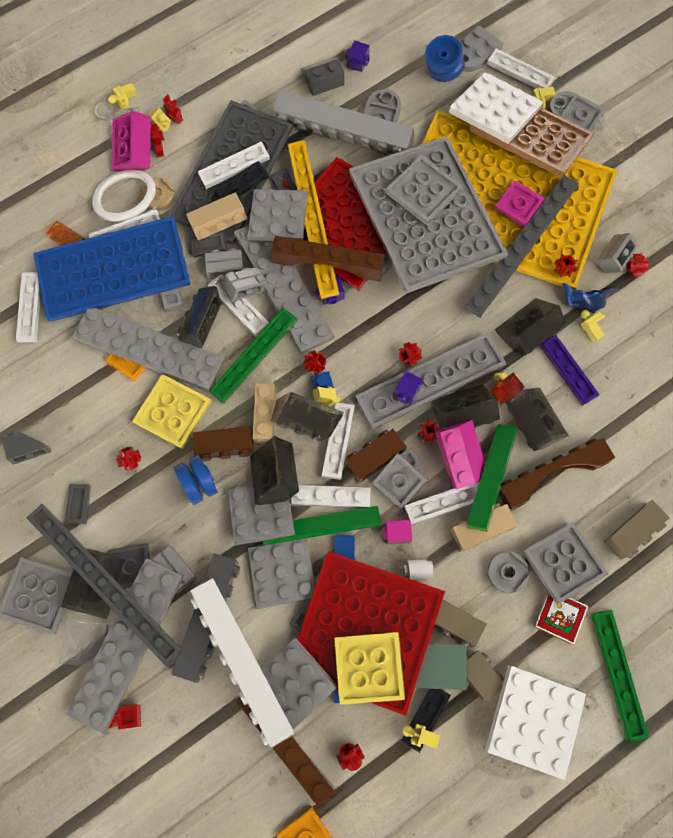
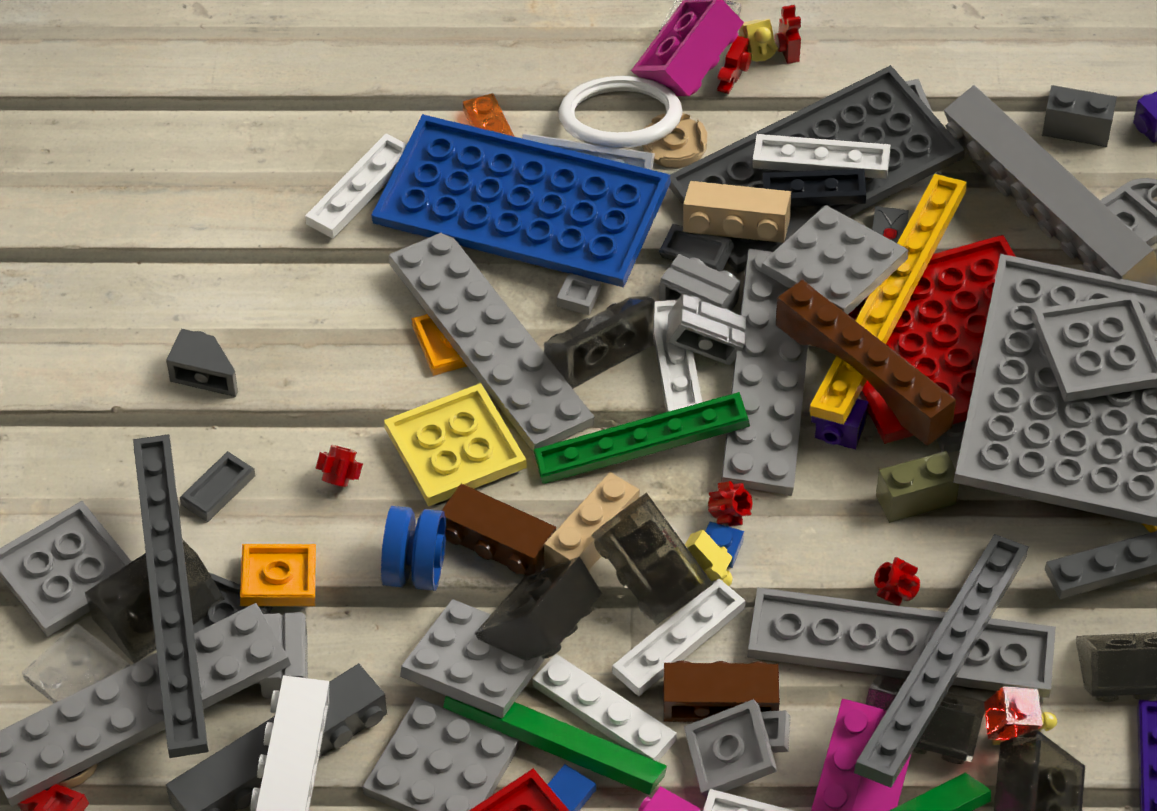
camera: 35 degrees right, 20 degrees down
(141, 531) = (278, 574): none -> light orange tile
(386, 302) = (917, 486): none -> olive brick
(408, 388) = (849, 621): dark purple brick -> none
(428, 426) = (828, 708): red gear -> none
(463, 385) = (940, 662): none -> dark grey plate

